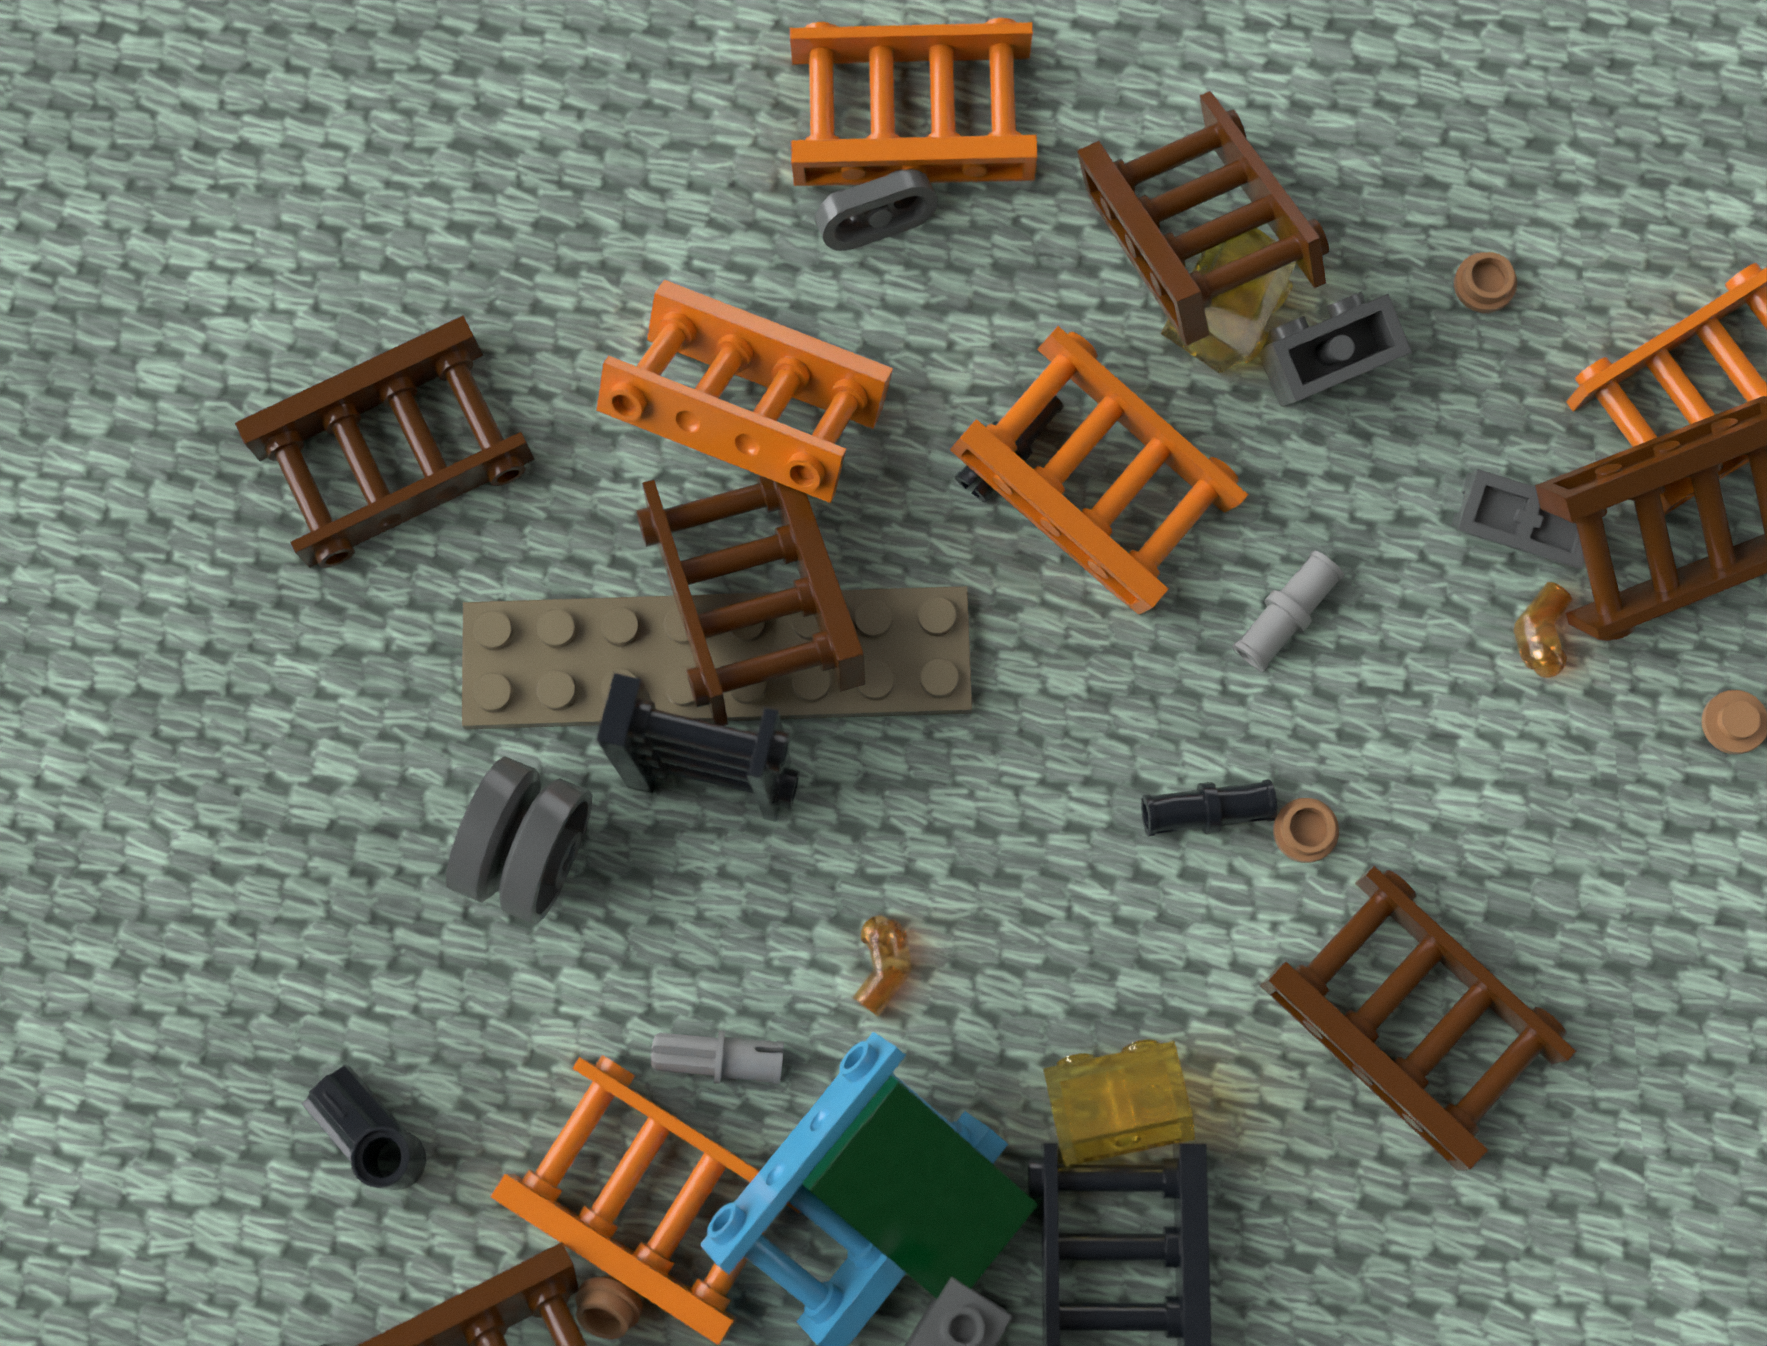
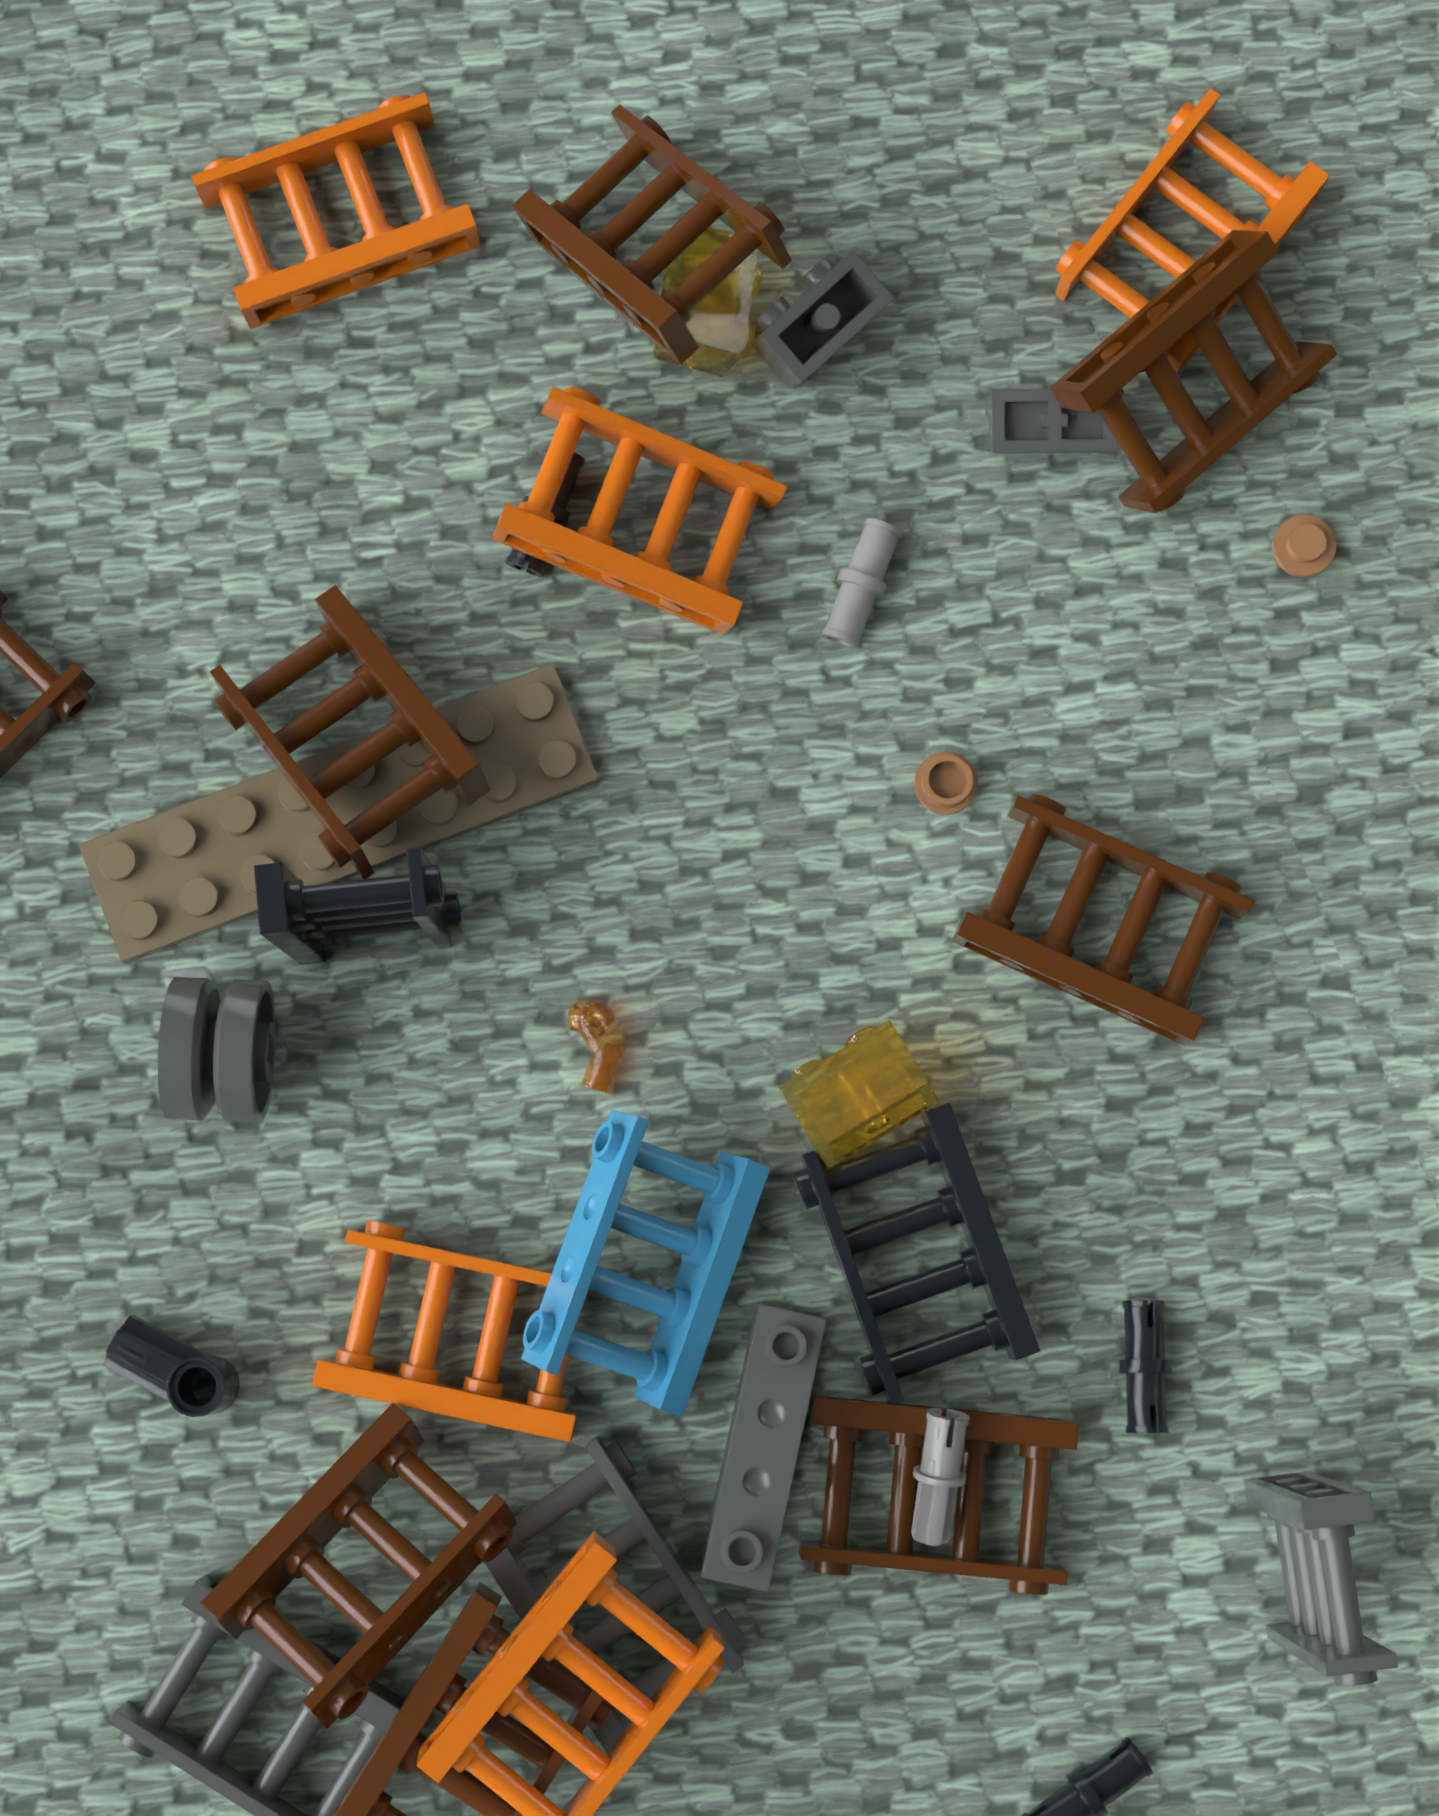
camera: 25 degrees left, 5 degrees up
(607, 1307) = (455, 1446): medium nougat plate -> none
(718, 1057) = (476, 1183): light grey axle -> none
(762, 353) = (275, 505): orange fence -> none
(876, 209) = (338, 327): dark grey plate -> none
(919, 1191) = (704, 1238): dark green tile -> none
(1209, 807) = (849, 793): black pin -> none
(1485, 282) = (942, 204): medium nougat plate -> none
(1537, 634) = (1097, 524): clear orange arm -> none

